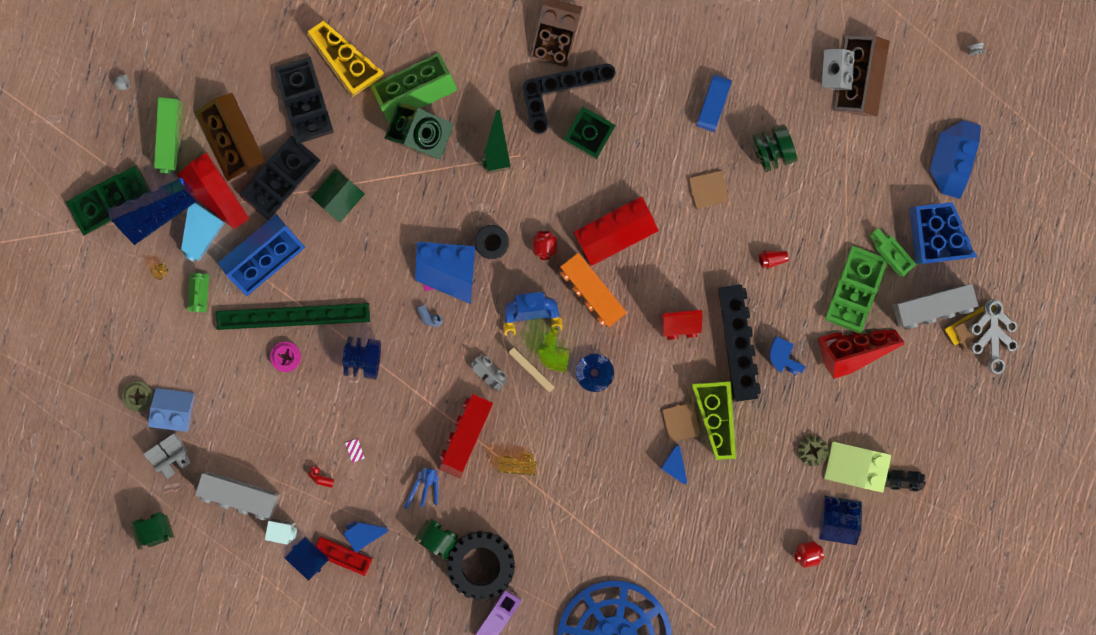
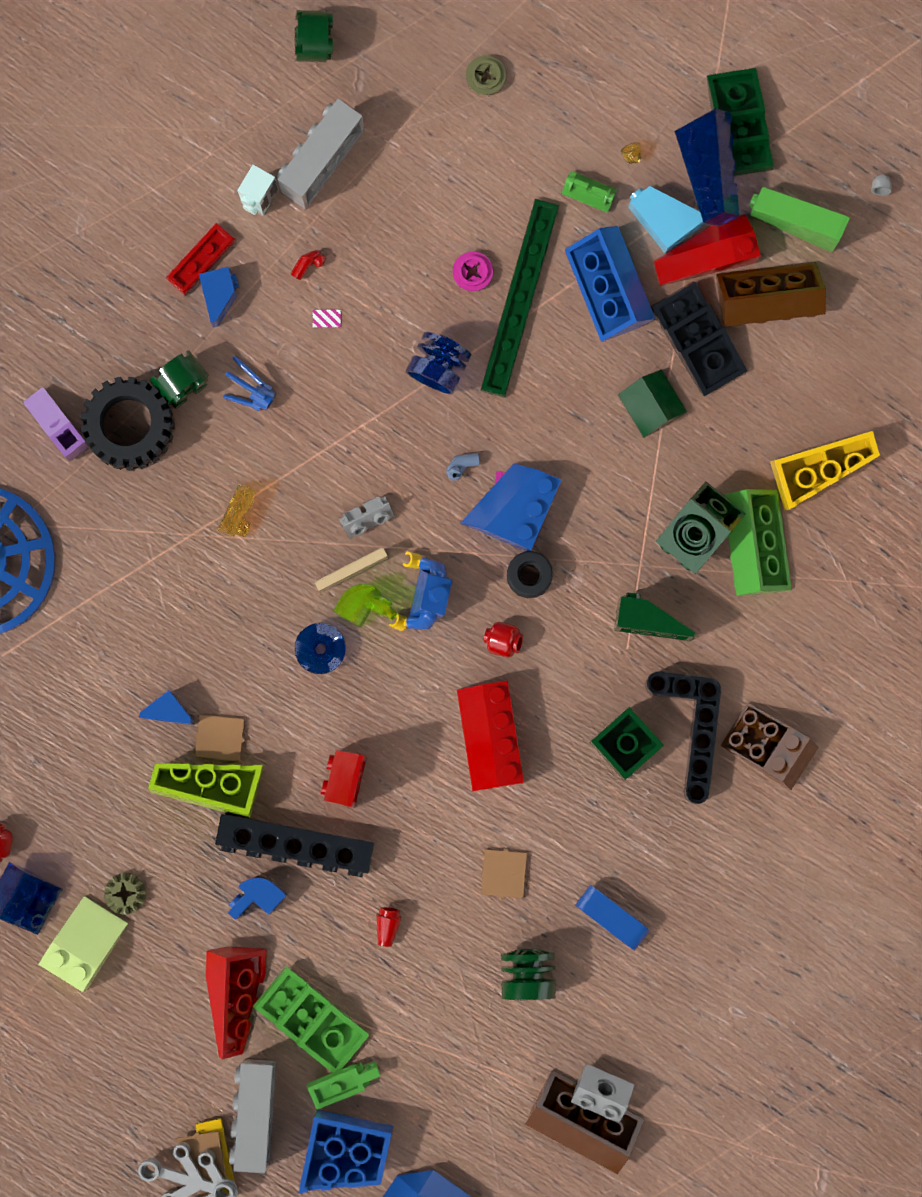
camera: 105 degrees right, 5 degrees down
(166, 453) = (402, 86): light grey hips -> none
(171, 410) = (454, 110): medium blue slope -> none
(303, 100) = (786, 400): black slope -> none
(306, 558) = (213, 213): clear blue piece -> none
(466, 435) = (298, 459): red wedge -> none
(593, 290) = (424, 680): orange brick -> none
(913, 481) = (40, 1008): black hinge -> none

